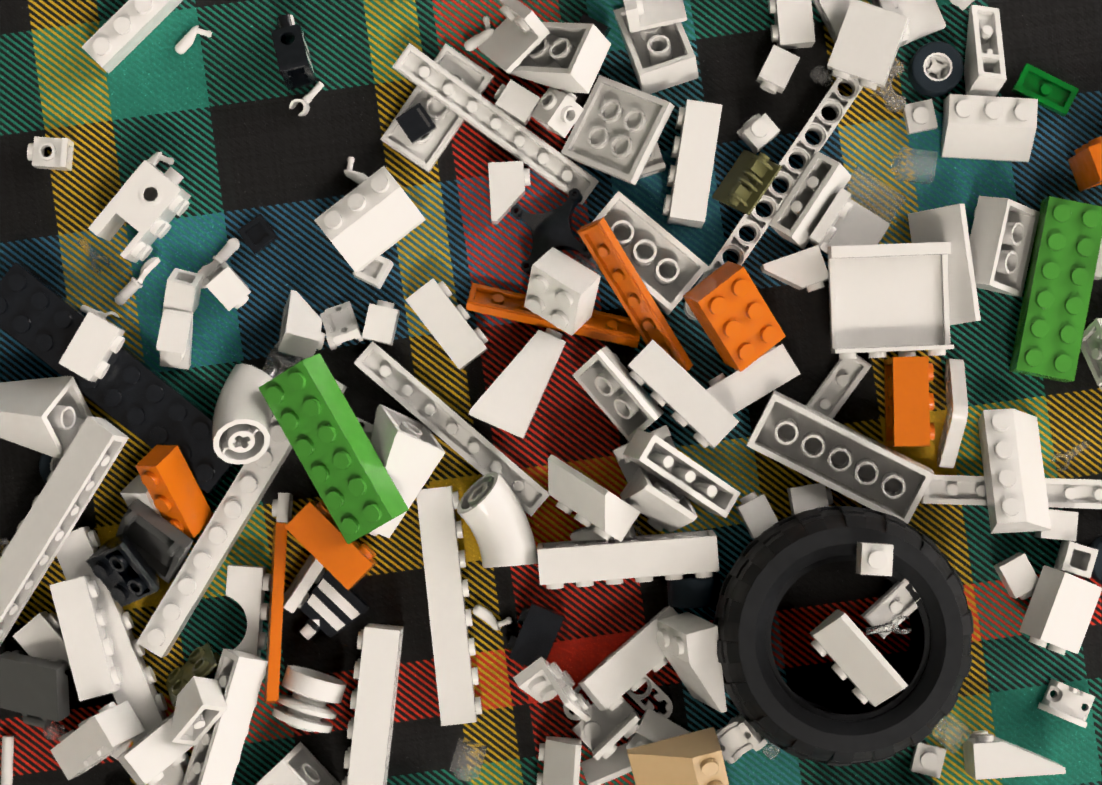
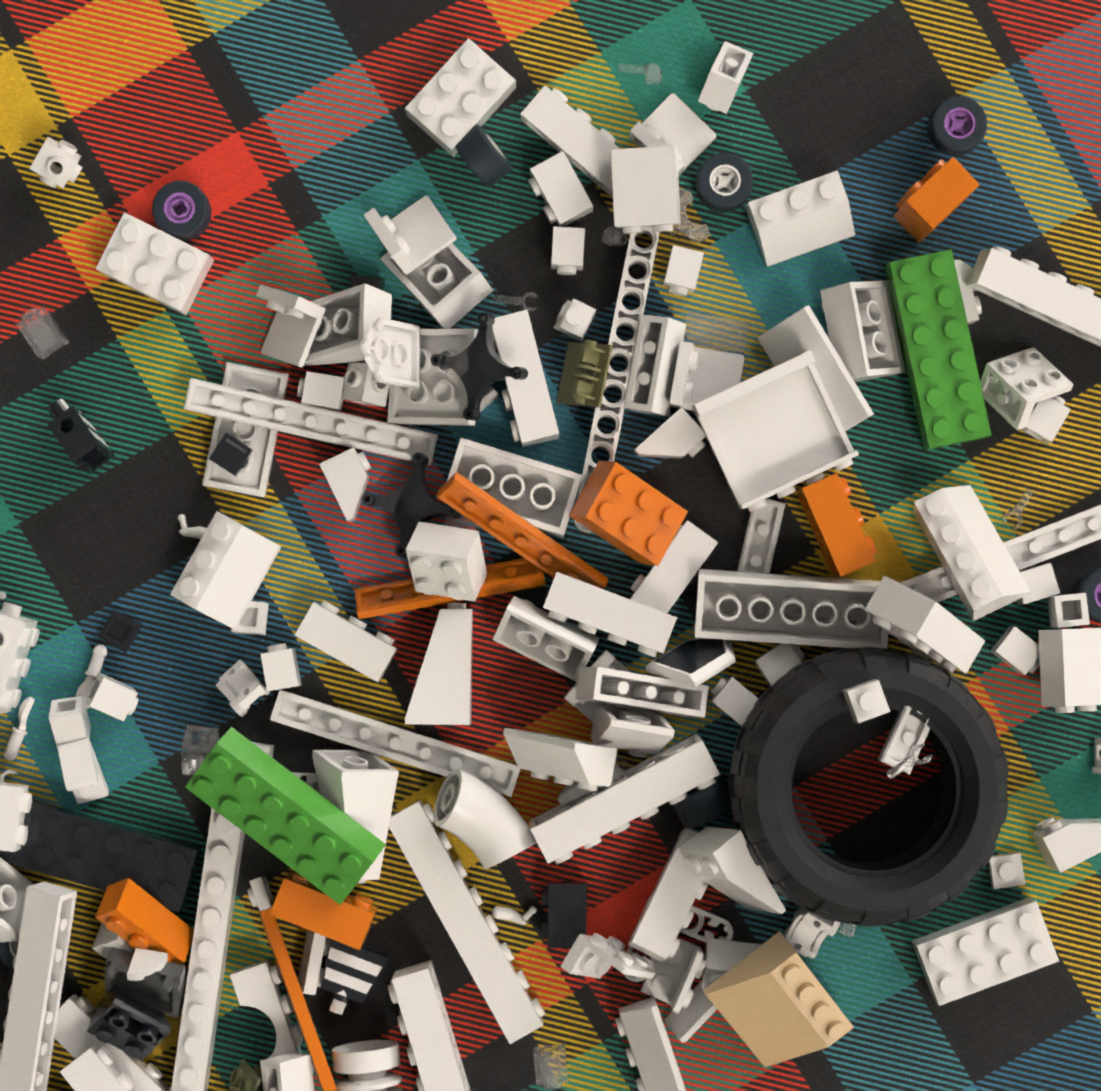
camera: 25 degrees left, 0 degrees up
(161, 524) = (146, 963): none -> white tile
(242, 417) = (181, 822): white brick -> none
(300, 328) = (202, 708): white slope -> none
(306, 99) = (112, 476): white hand -> none
(480, 38) = (259, 342): white piece -> none
(592, 93) = (393, 352): none -> white tile
(661, 135) = (479, 366): none -> black piece
(717, 97) = (517, 301): none -> clear hand
(737, 465) = (694, 661): none -> tile
(856, 659) = (890, 808): white slope -> none
(868, 129) = (683, 270): none -> white brick
(914, 165) = (744, 287): clear brick -> none
(920, 116) = (729, 236): white plate -> none
(948, 518) = (924, 626): none -> white brick
(951, 733) = (1017, 835): clear brick -> none
(956, 413) = (888, 516): white beam -> none
(984, 52) = (765, 146): white slope -> none
(1049, 90) = (841, 155): green plate -> none

